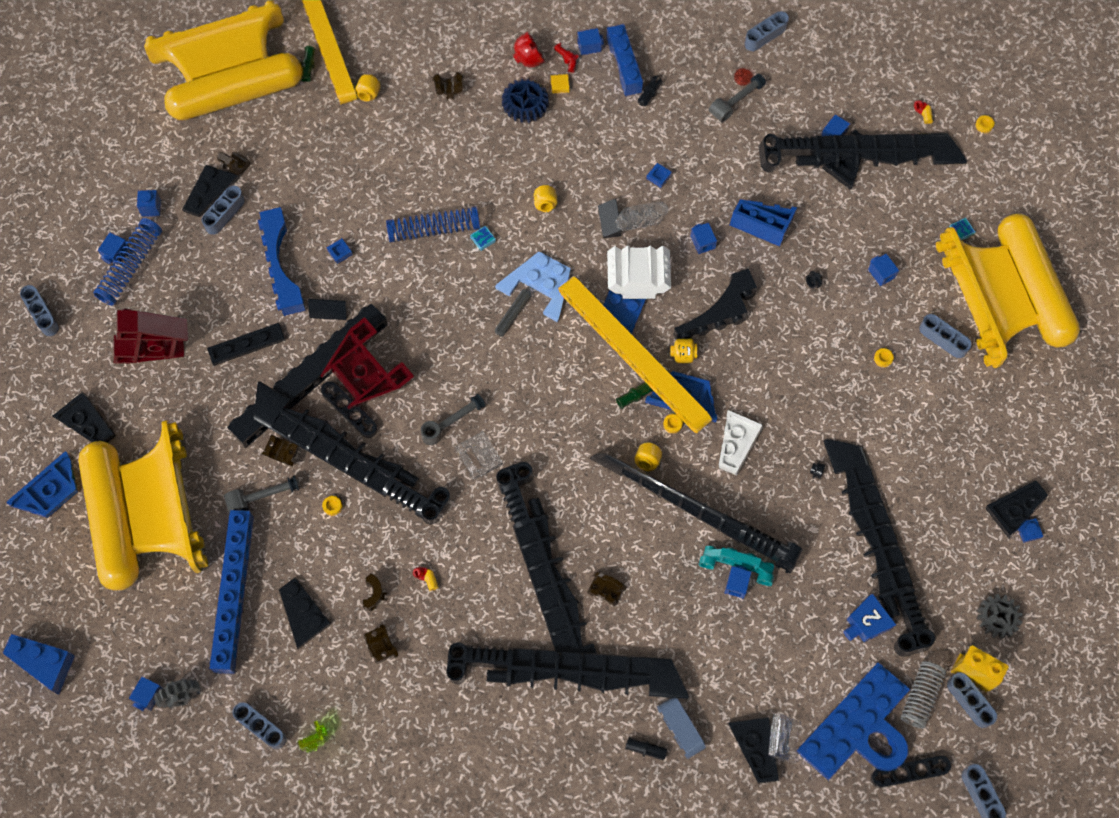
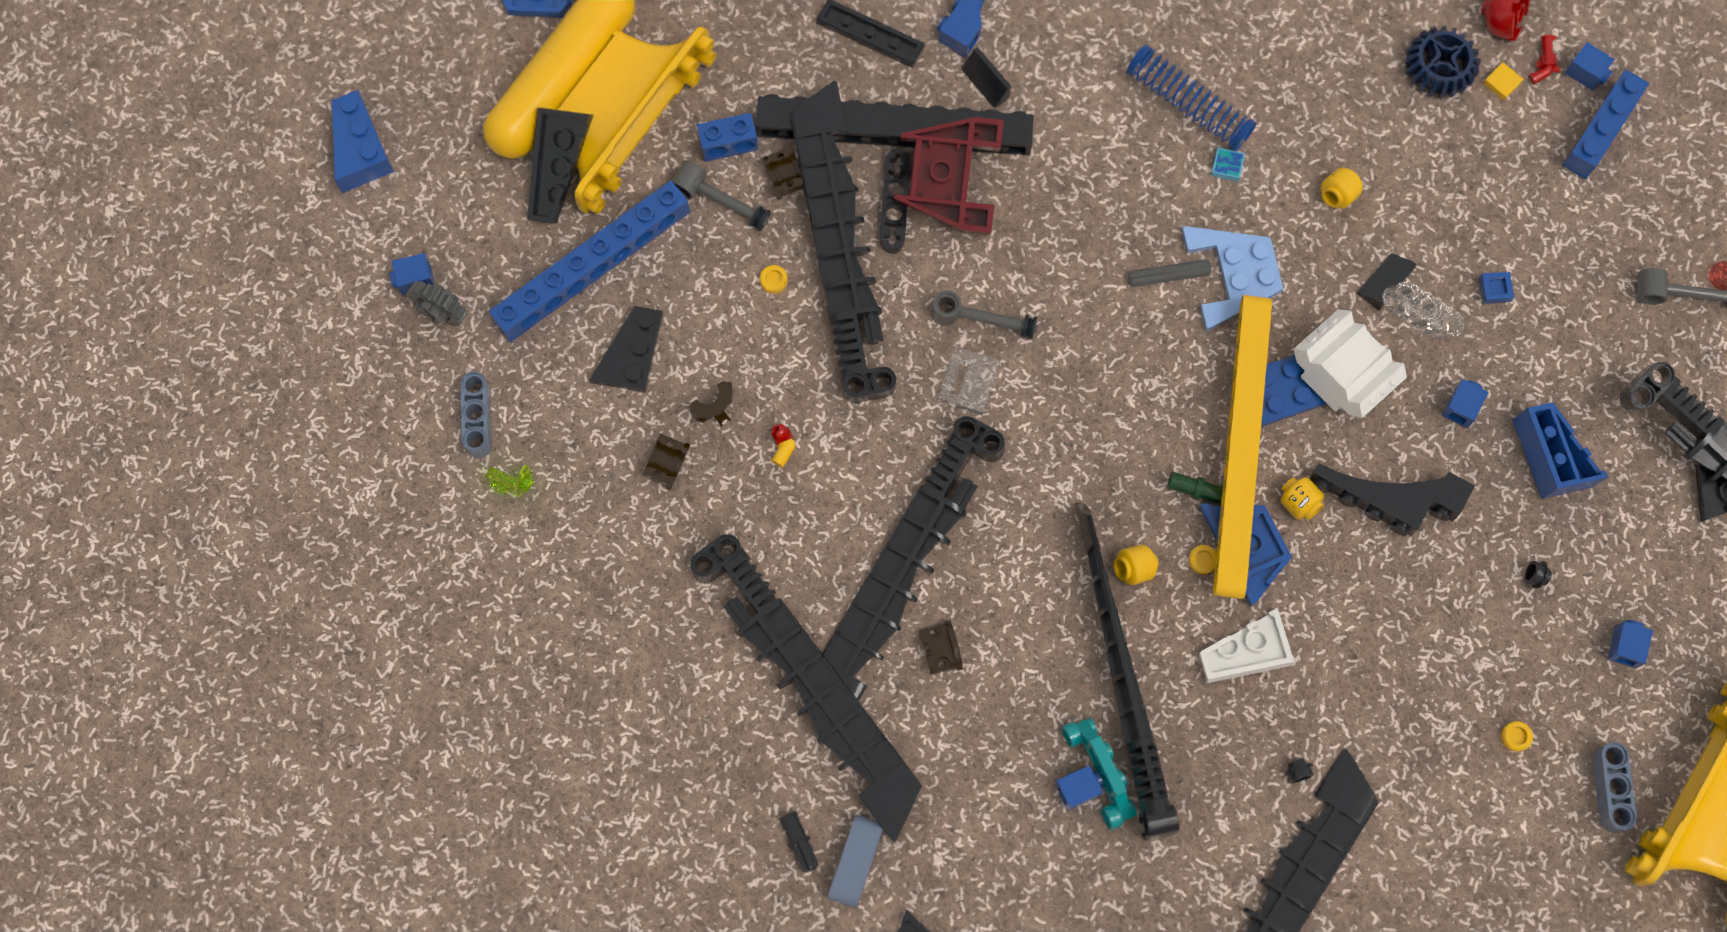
camera: 50 degrees right, 5 degrees up
(158, 559) = (555, 158): none -> black wing
(233, 462) = (727, 137): none -> blue brick
(339, 251) = (1065, 30): blue plate -> none
(649, 91) = (1594, 187): black axle -> none

